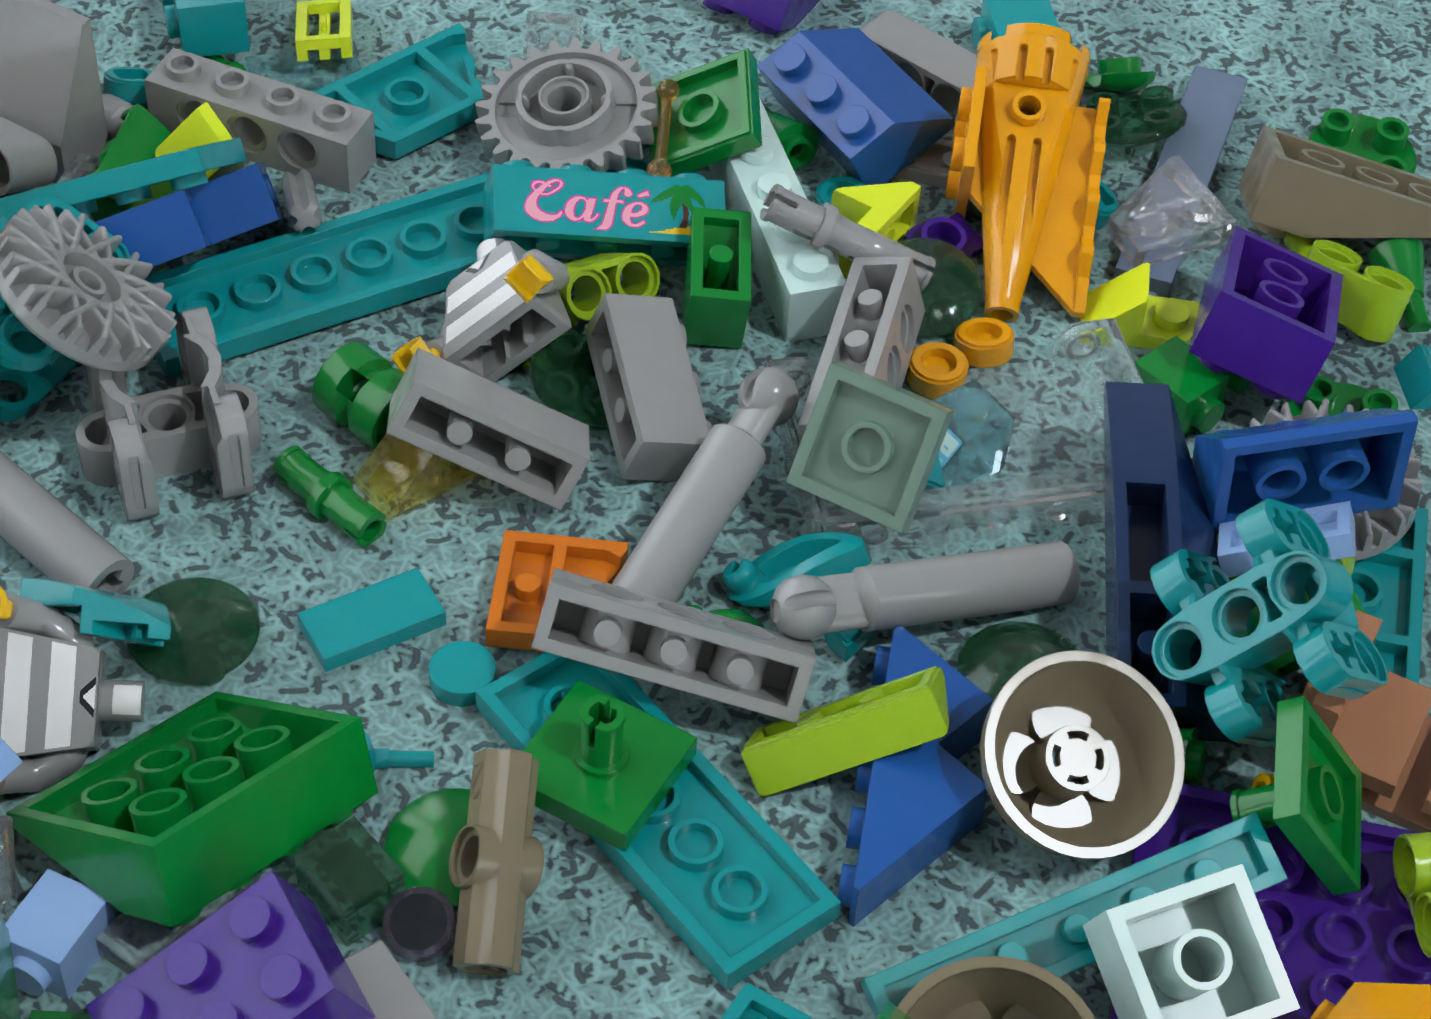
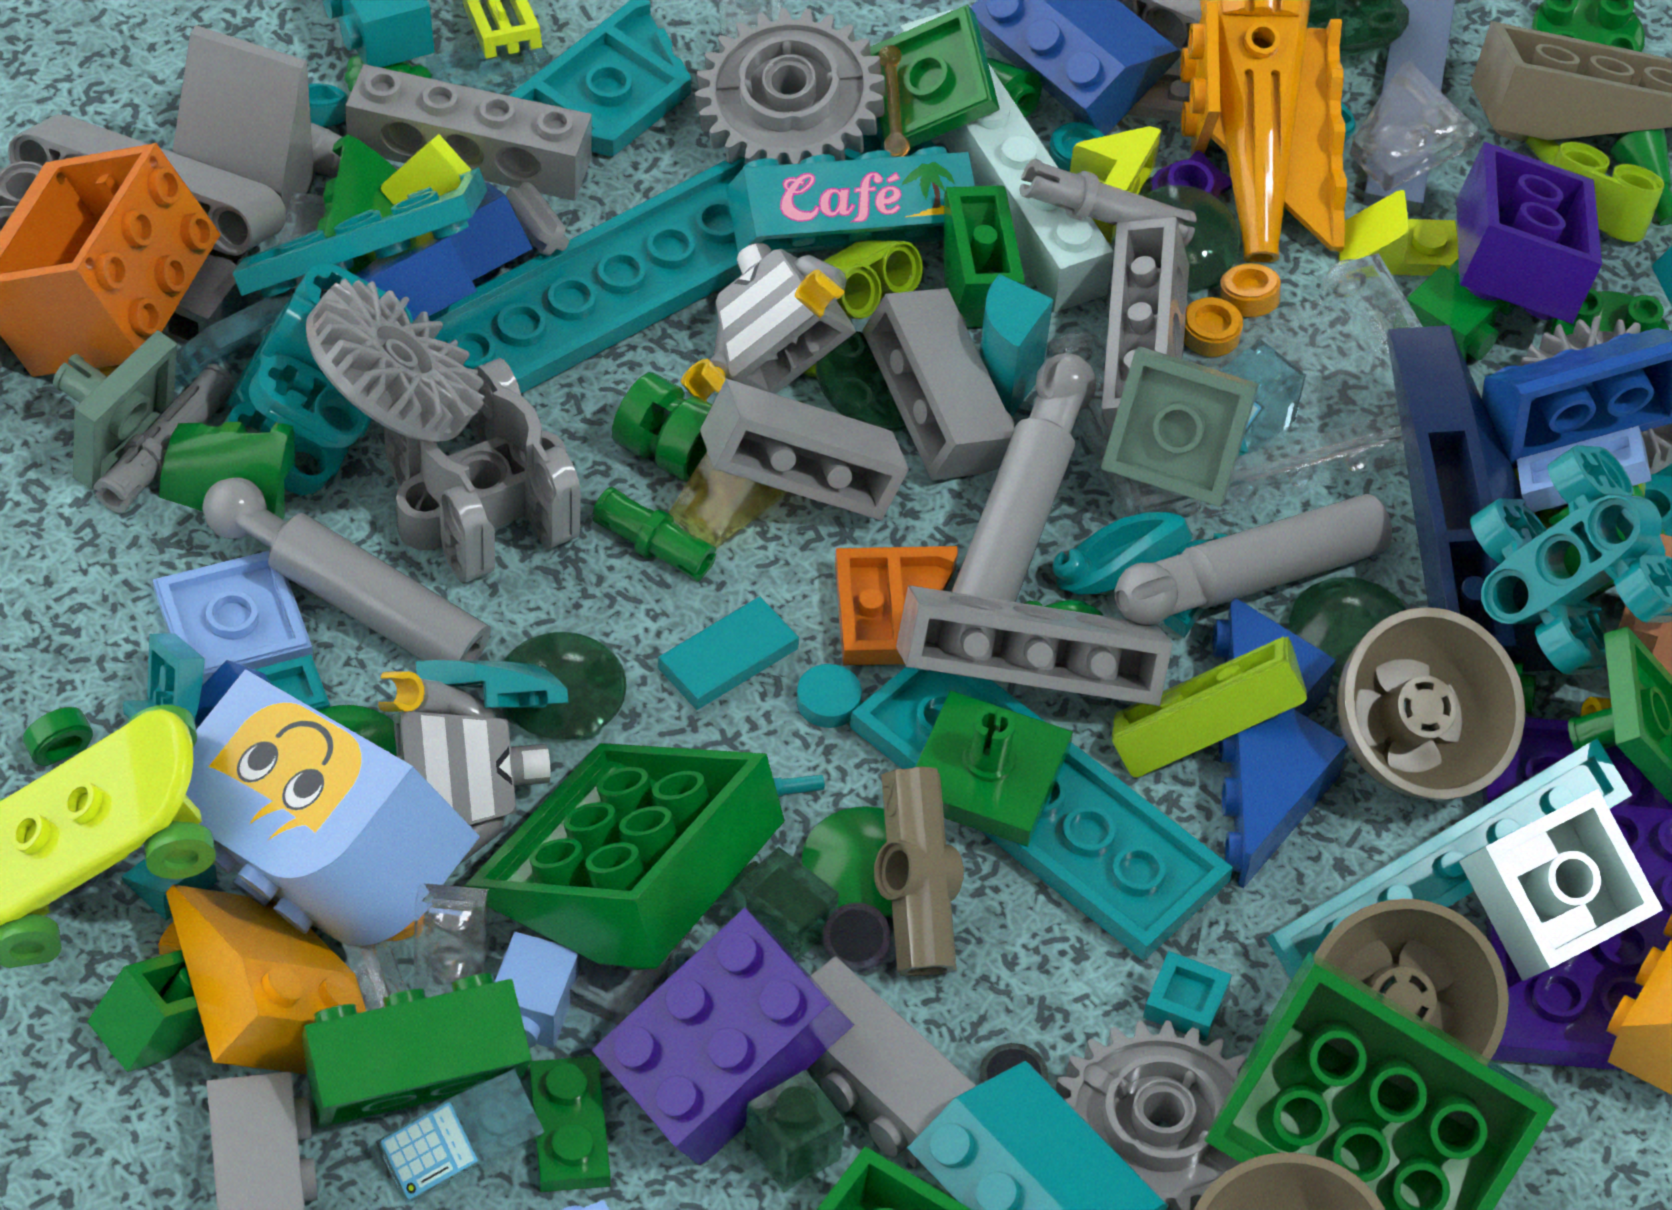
camera: 10 degrees left, 5 degrees up
(727, 350) = (1014, 338): none -> teal brick

